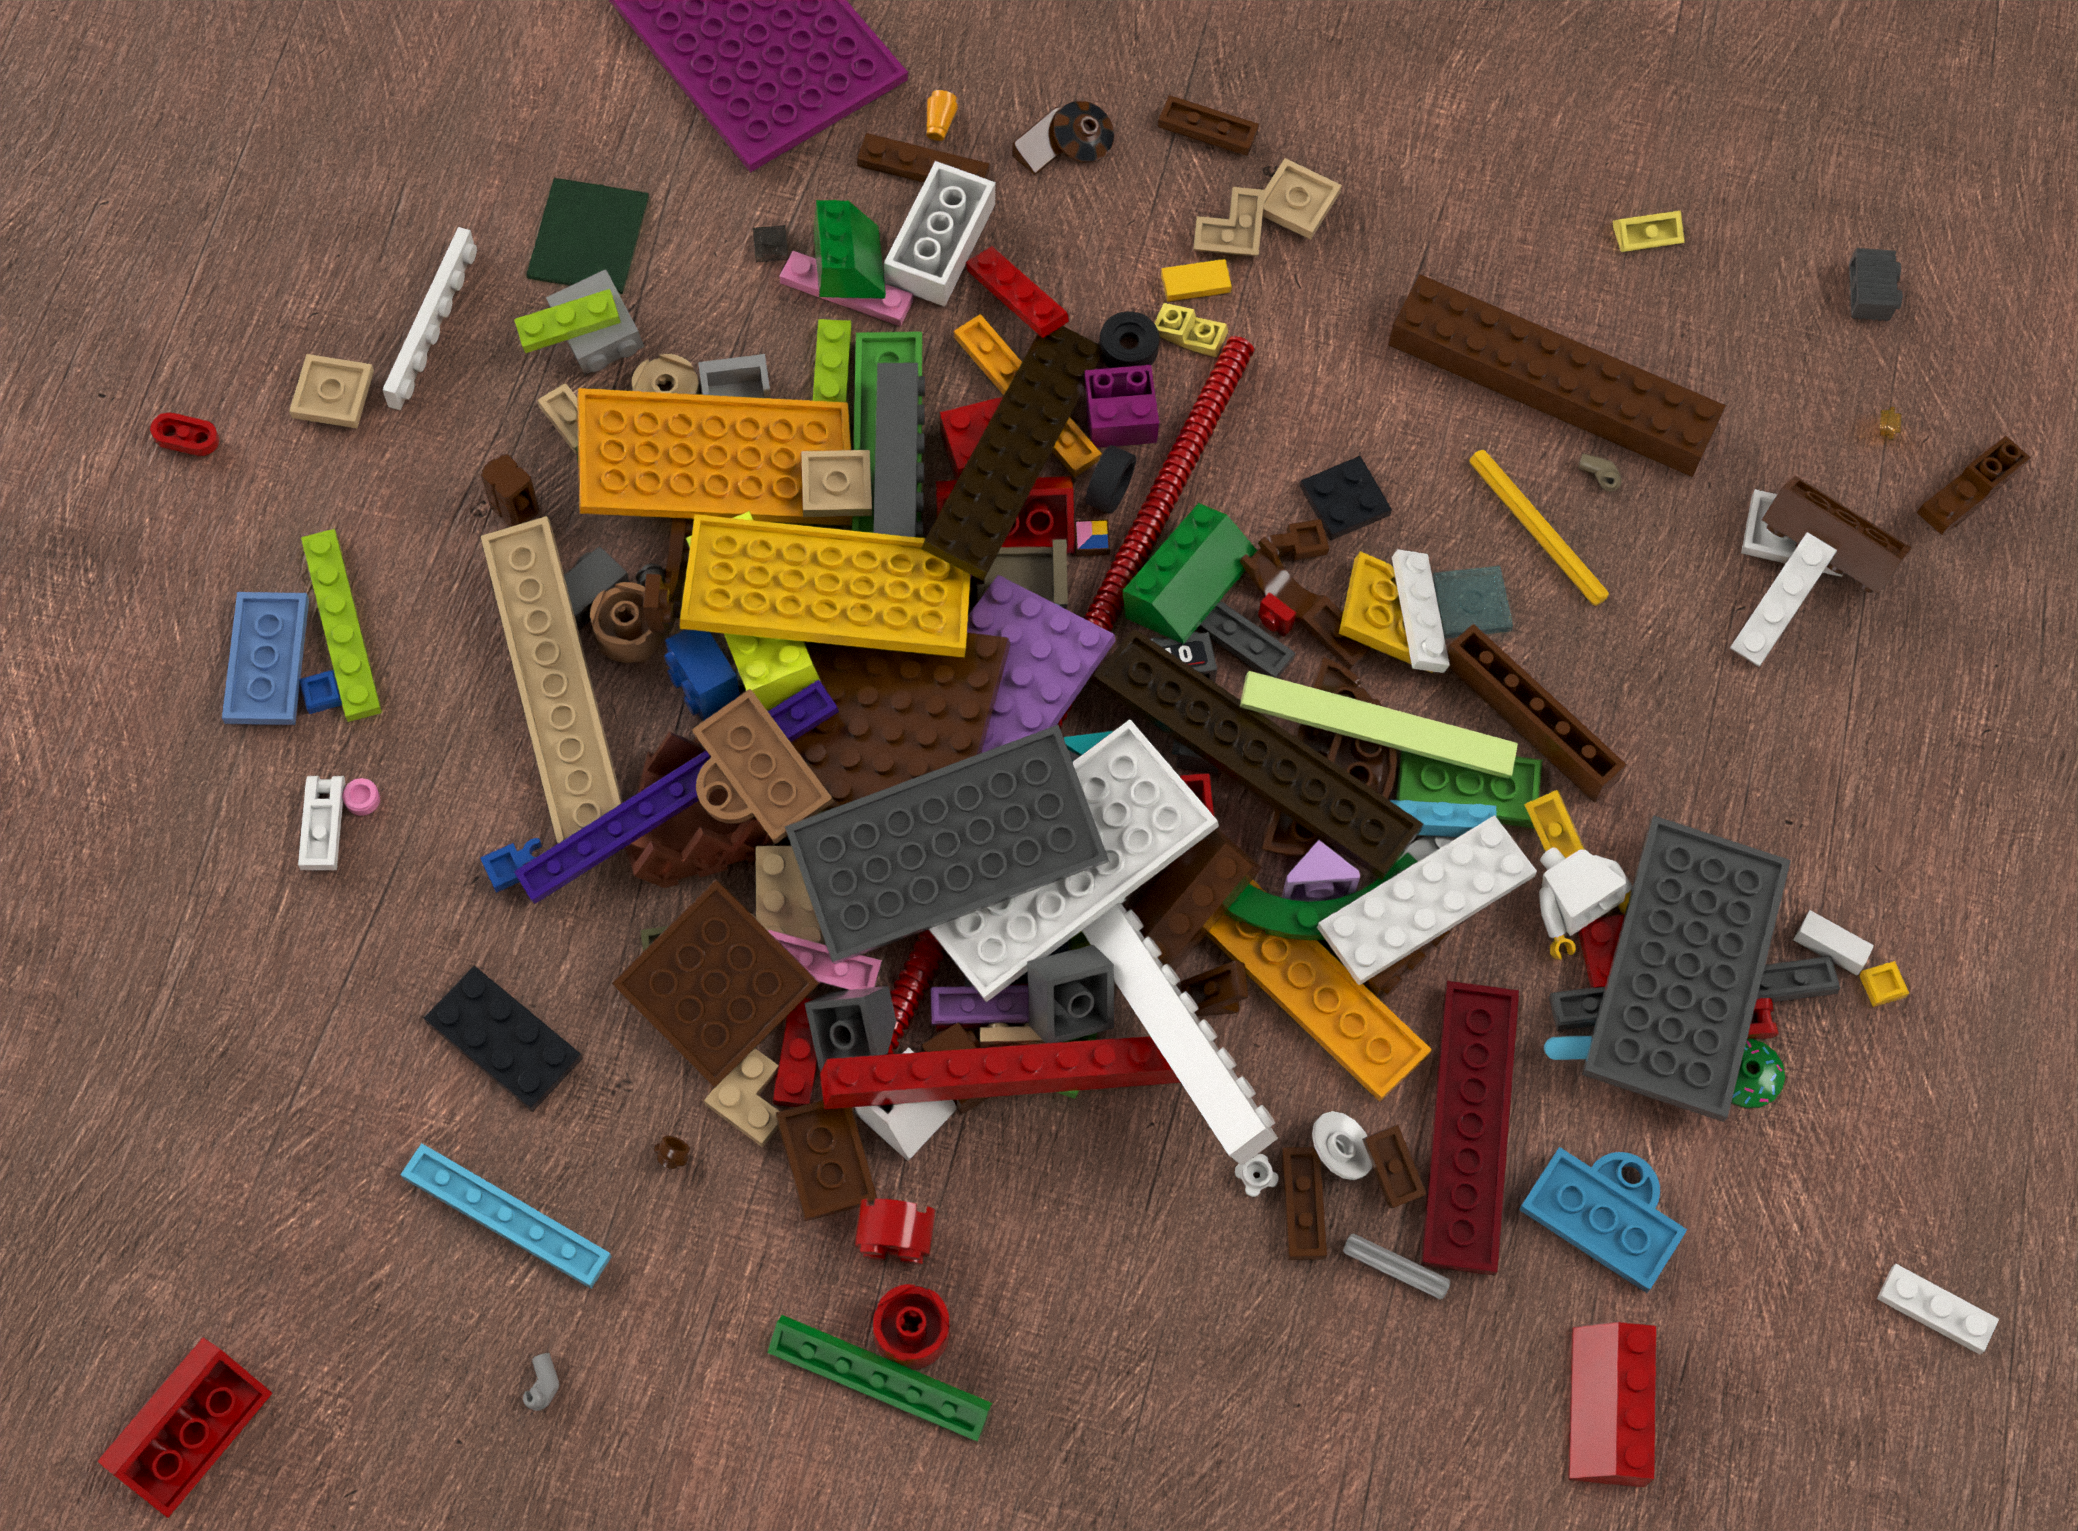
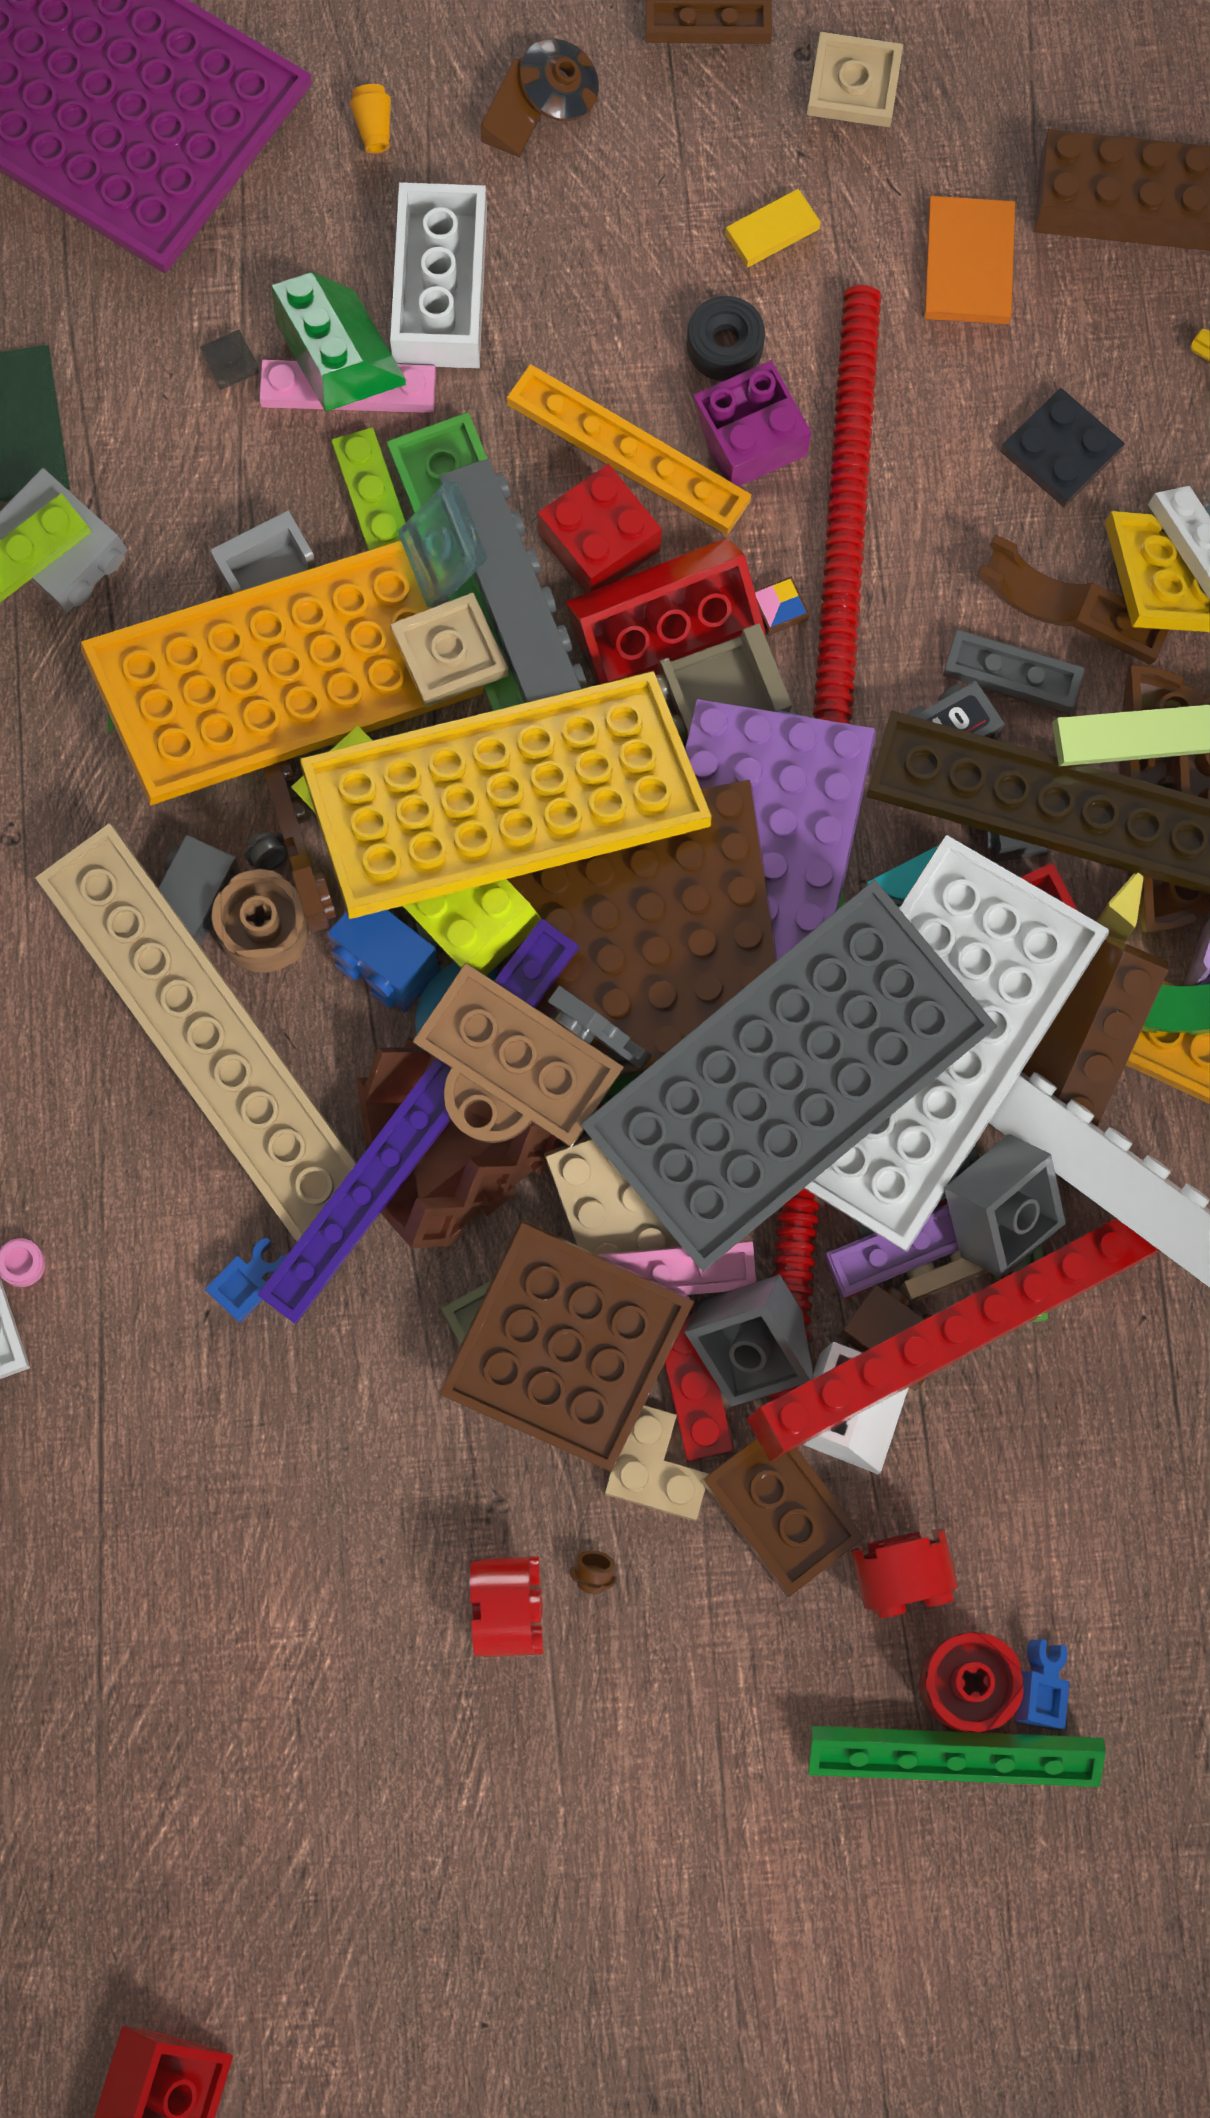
camera: 20 degrees left, 10 degrees up
(503, 1038) = (326, 1504): black plate -> none
(506, 1215) = (425, 1727): medium azure plate -> none
(509, 491) = (43, 803): reddish brown brick -> none
(545, 1386) = (561, 1918): light grey arm -> none
(561, 410) = (67, 674): tan plate -> none
(596, 1148) = (506, 1606): none -> red brick
(666, 368) = (171, 569): tan plate -> none
(821, 763) = (589, 1024): none -> dark grey wing
(861, 410) = (442, 544): none -> clear light blue tile
(911, 160) = (362, 189): reddish brown plate -> none
(961, 1355) = (1044, 1693): none -> blue plate
(1012, 452) = (653, 533): dark brown plate -> none
(1017, 292) = (566, 320): red plate -> none
(1110, 479) = (779, 525): black tyre -> none
(1188, 574) = (923, 615): green slope -> none
(1190, 332) = (790, 297): light yellow slope -> none
(1218, 989) = (1163, 1124): reddish brown slope -> none
(1237, 234) = (806, 142): tan plate -> none
(1247, 824) = (1122, 910): none -> light yellow slope
(1276, 615) = (1042, 627): red plate -> none
(1303, 539) = (1036, 519): reddish brown plate -> none
(1331, 348) = (969, 260): none -> orange tile

